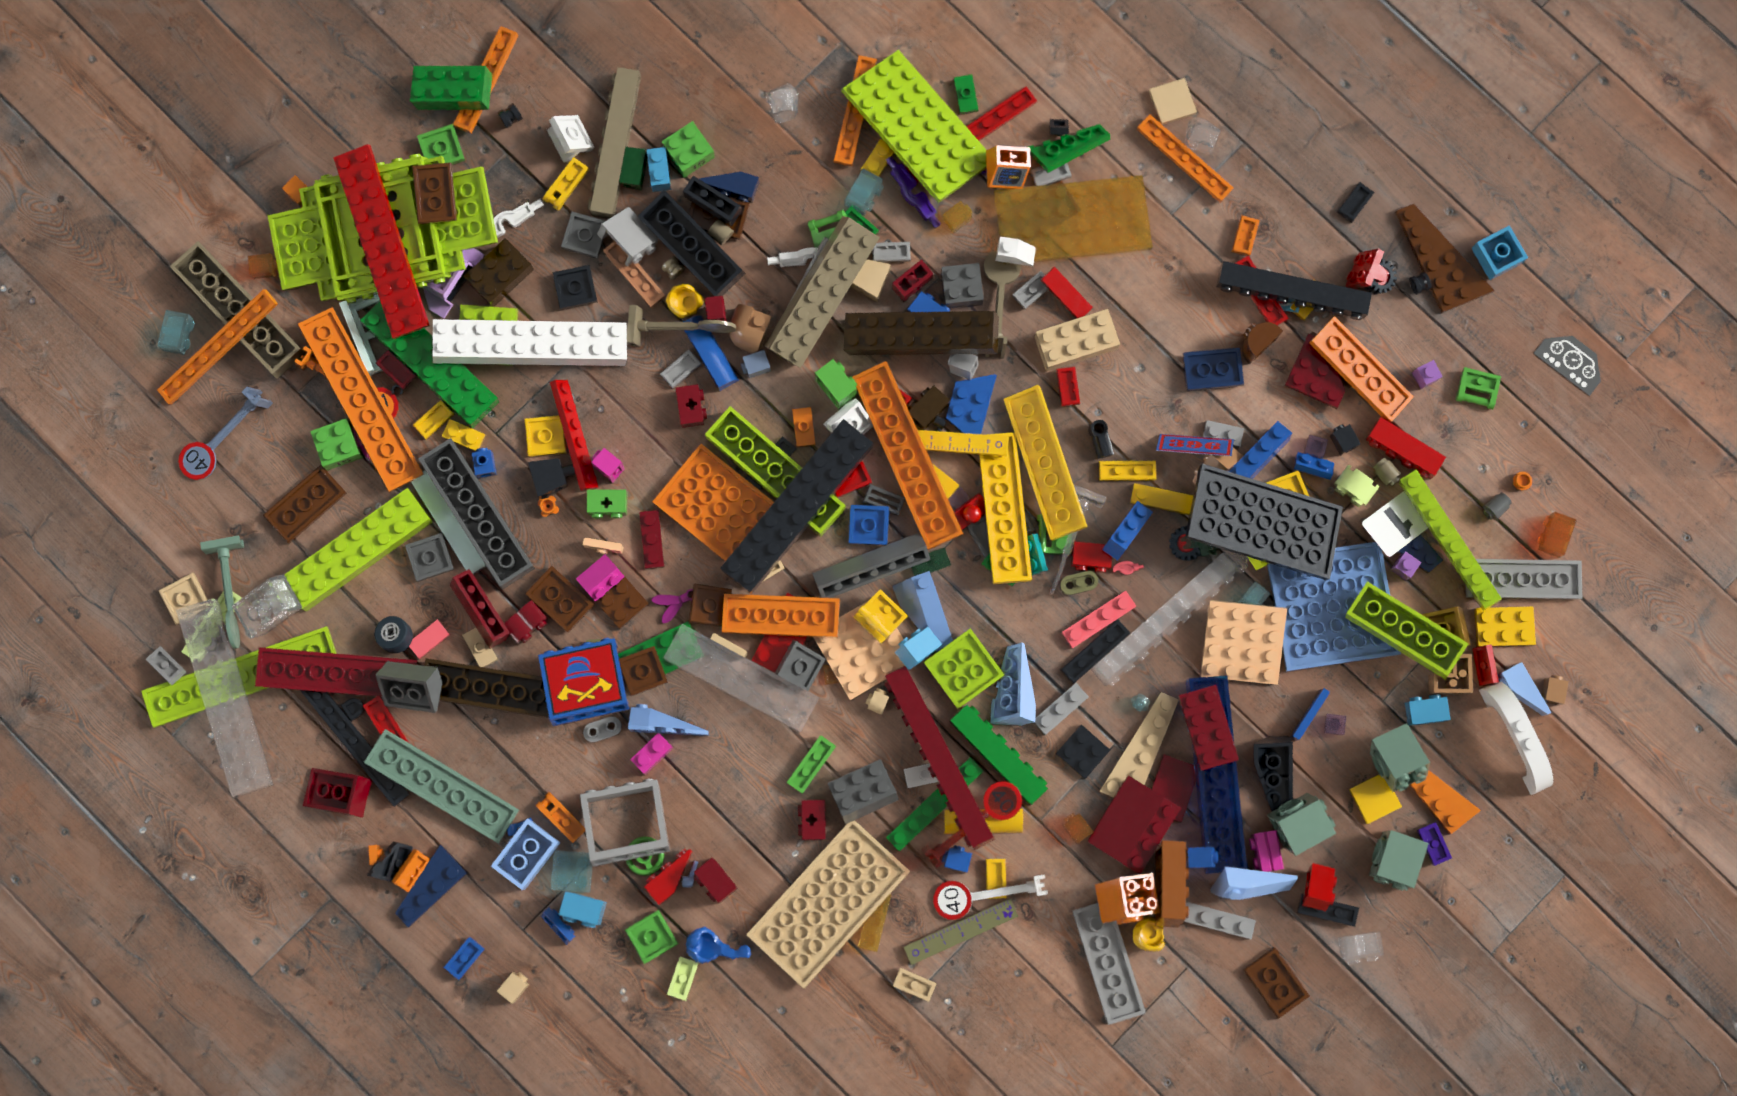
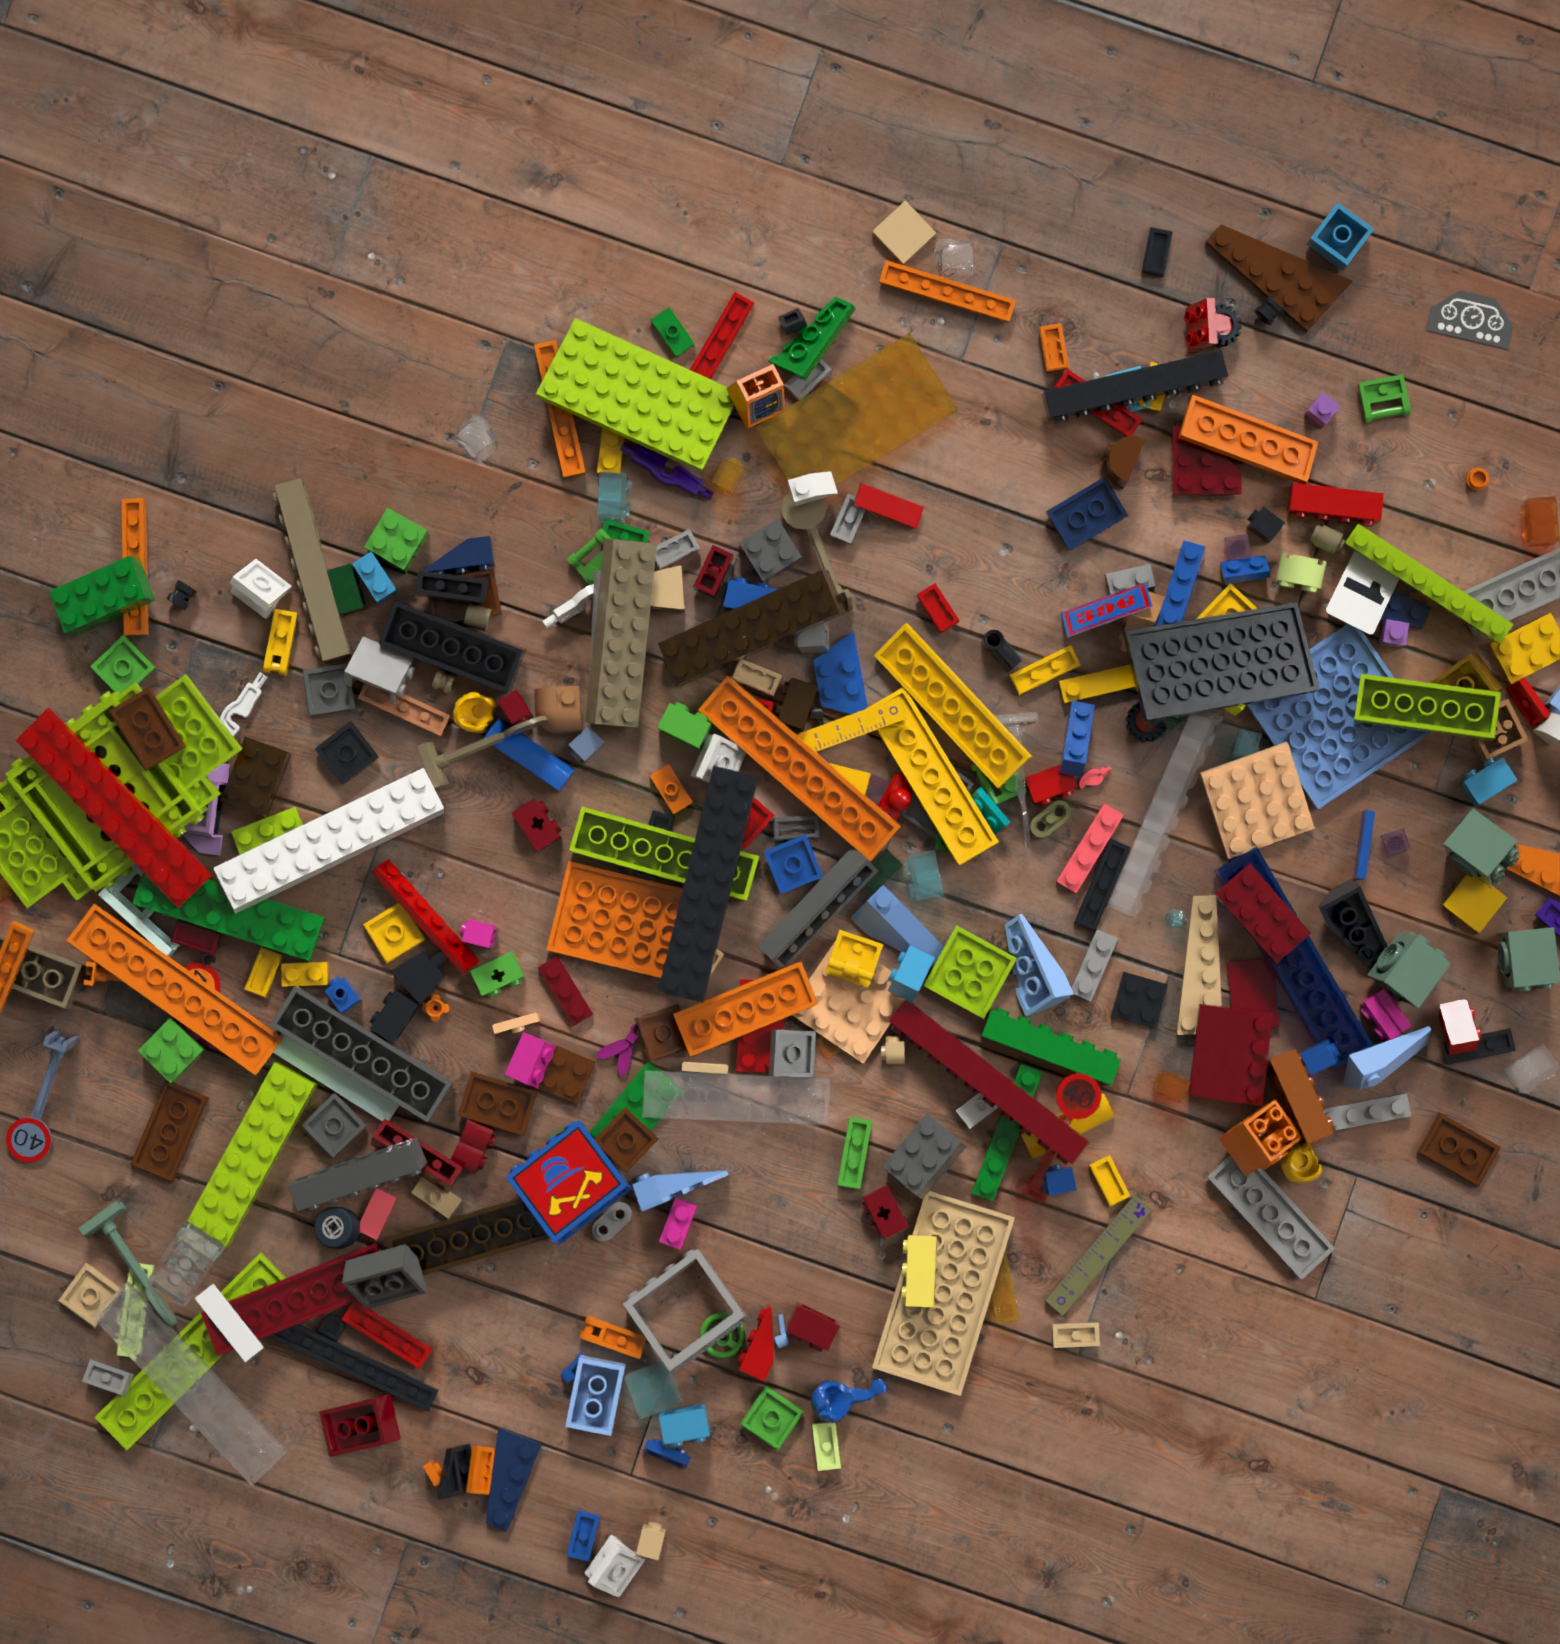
camera: 20 degrees left, 5 degrees up
(276, 665) = (229, 1322): none -> white sticker
(427, 600) = (357, 1174): none -> dark grey brick
(441, 786) = (469, 1365): sand green plate -> none
(475, 994) = (613, 1567): none -> white bracket
(514, 497) = (394, 1016): none -> black brick
(680, 369) = (506, 788): light grey tile -> none
(818, 876) = (919, 1270): none -> light yellow brick
(907, 374) = (756, 677): none -> tan plate
(954, 899) = (1076, 1224): white piece -> none
(963, 581) = (924, 876): none -> clear light blue brick
(1077, 340) = (924, 552): tan brick -> none
(1497, 506) = (1462, 521): dark grey brick -> none

